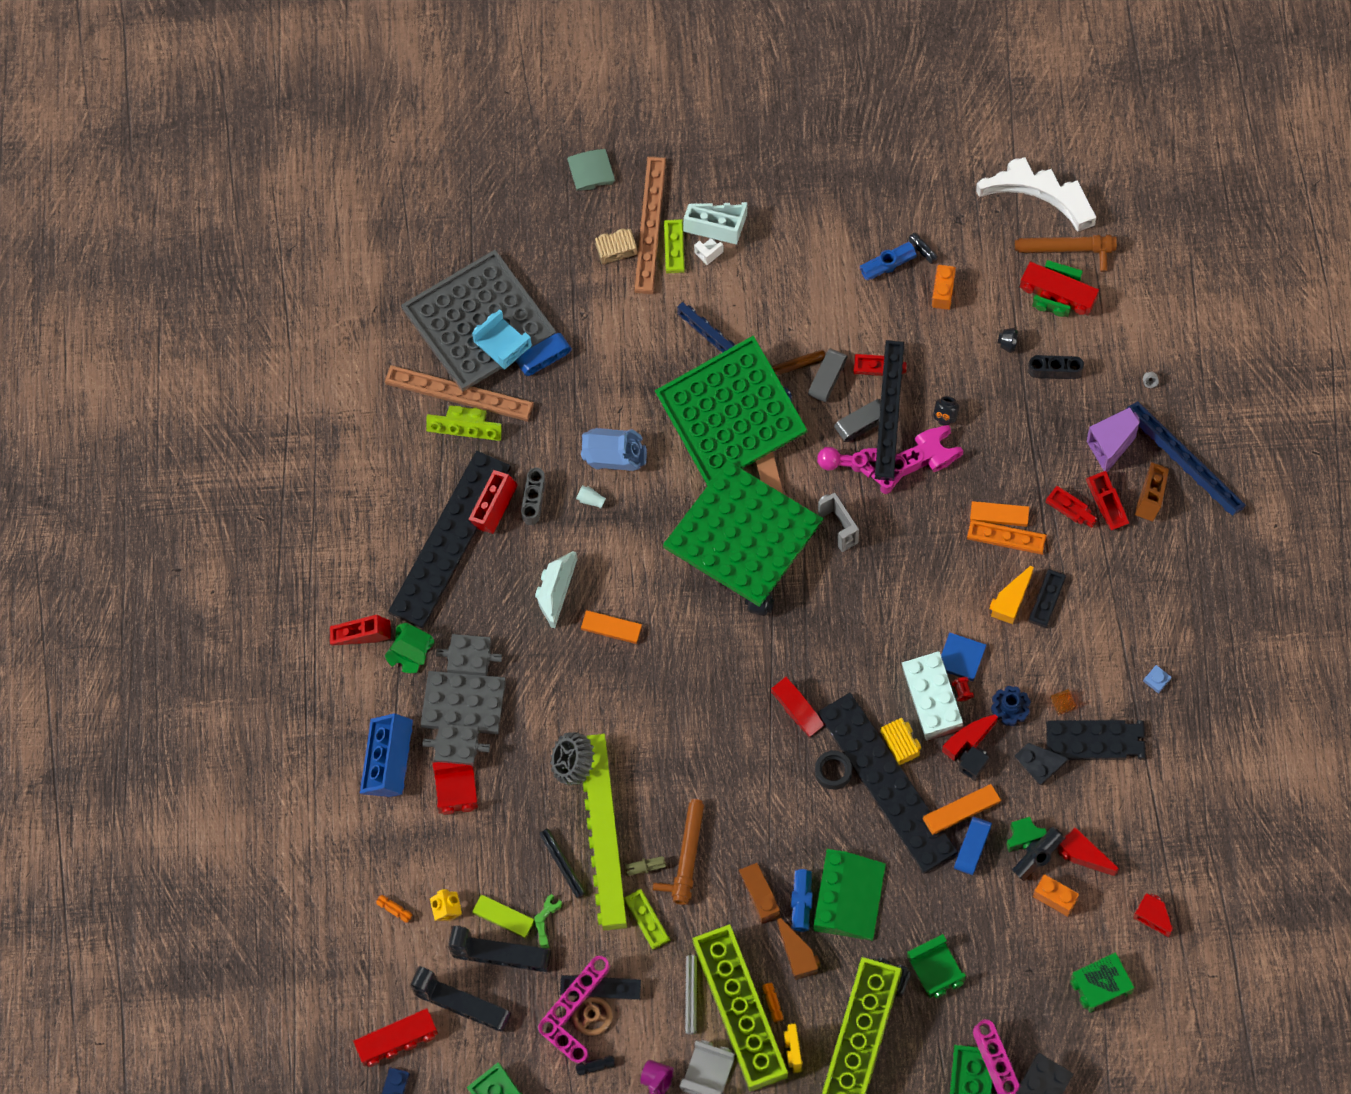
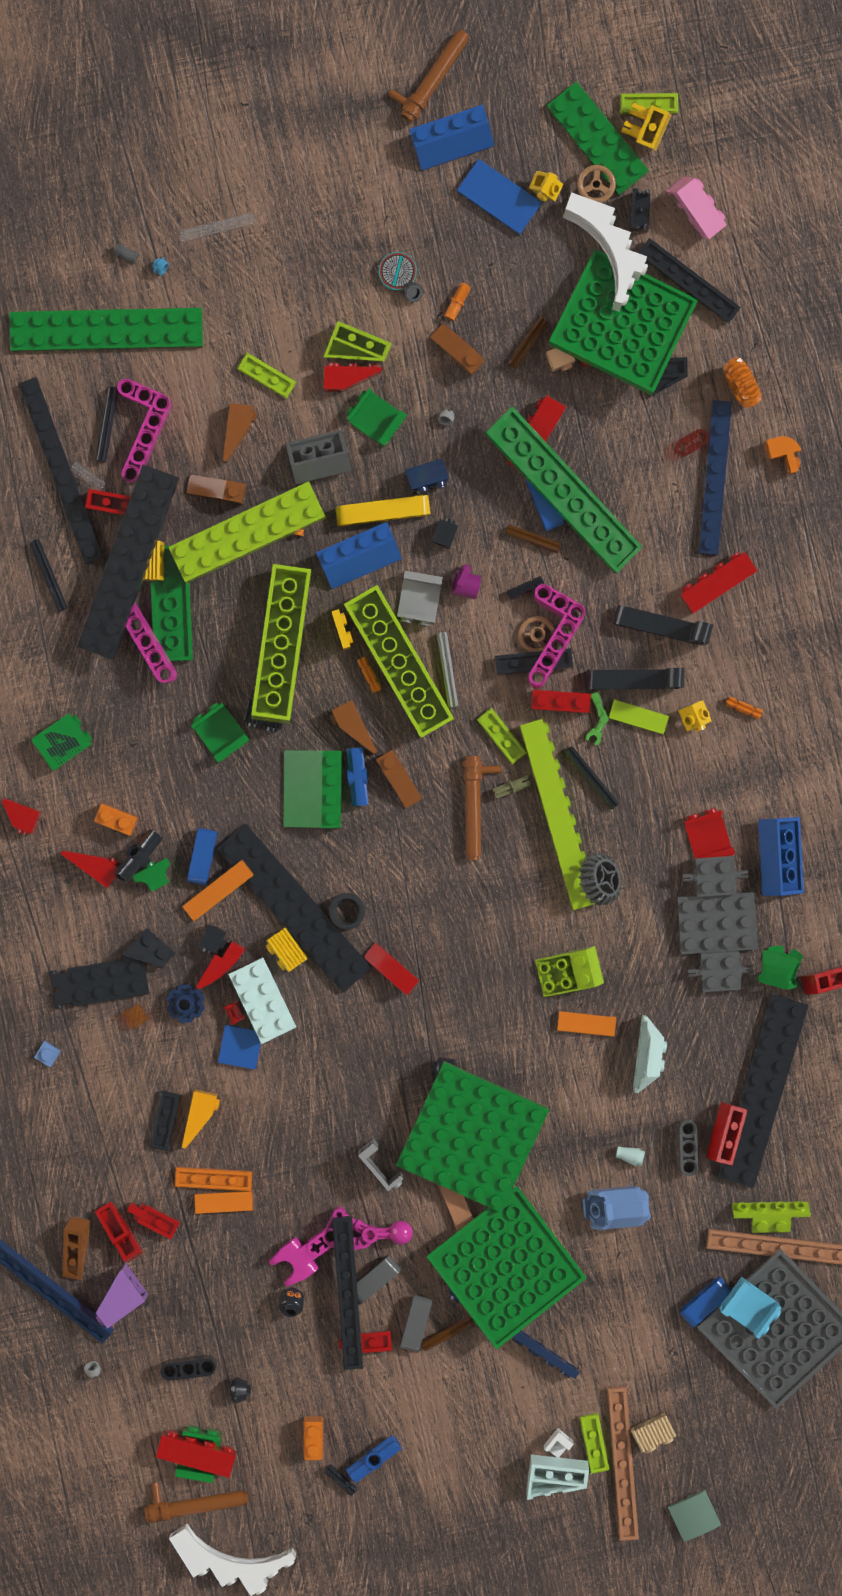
camera: 165 degrees right, 20 degrees up
(579, 942) = (560, 701): none -> red brick
(618, 677) = (569, 971): none -> lime slope

